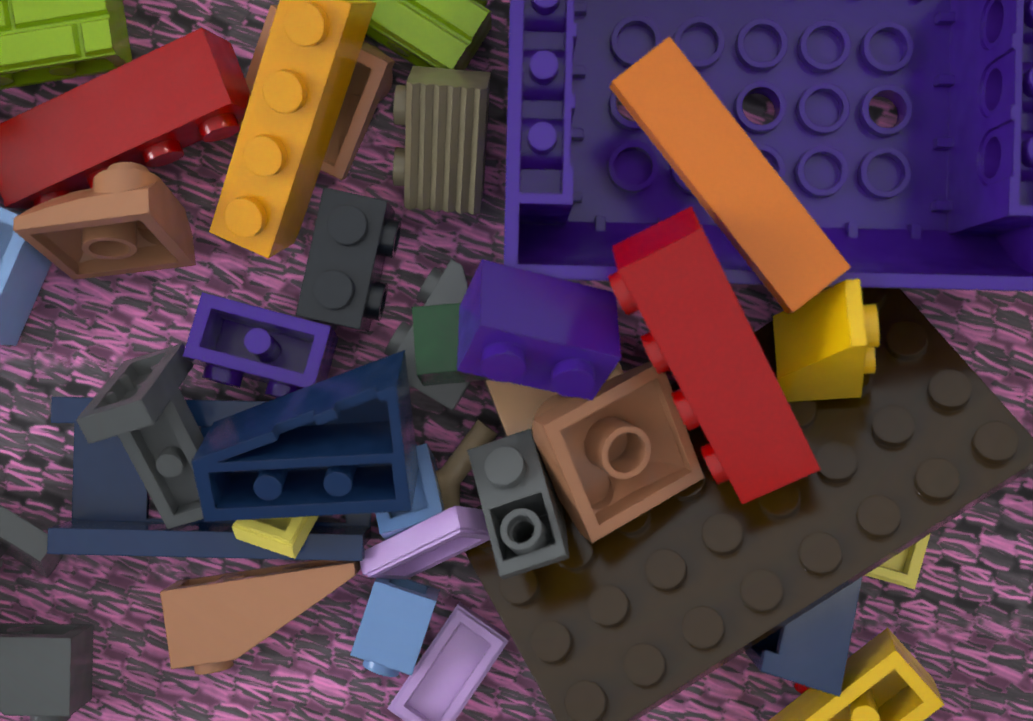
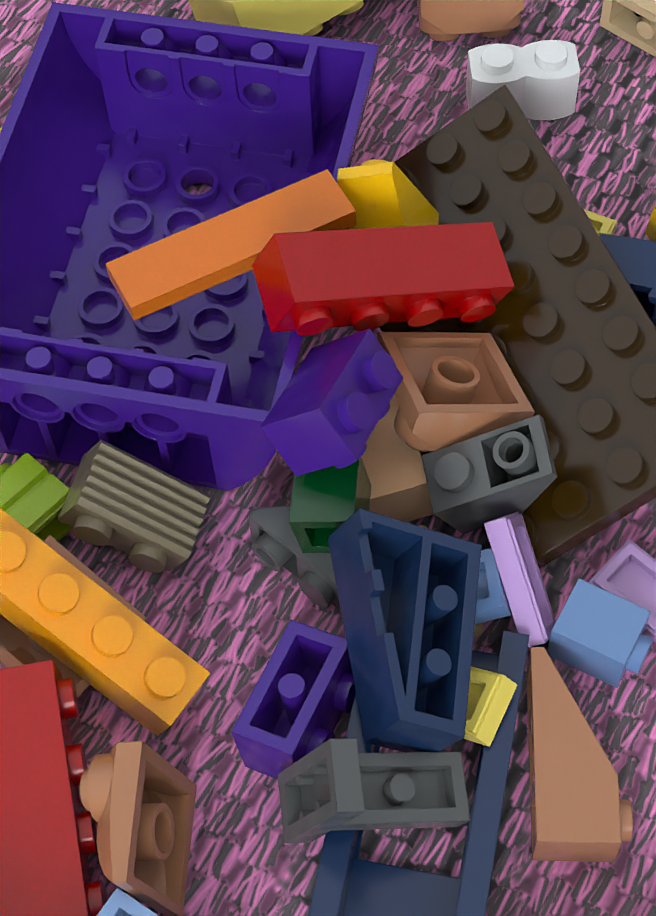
camera: 75 degrees left, 30 degrees down
(348, 260) = (224, 614): black brick -> none

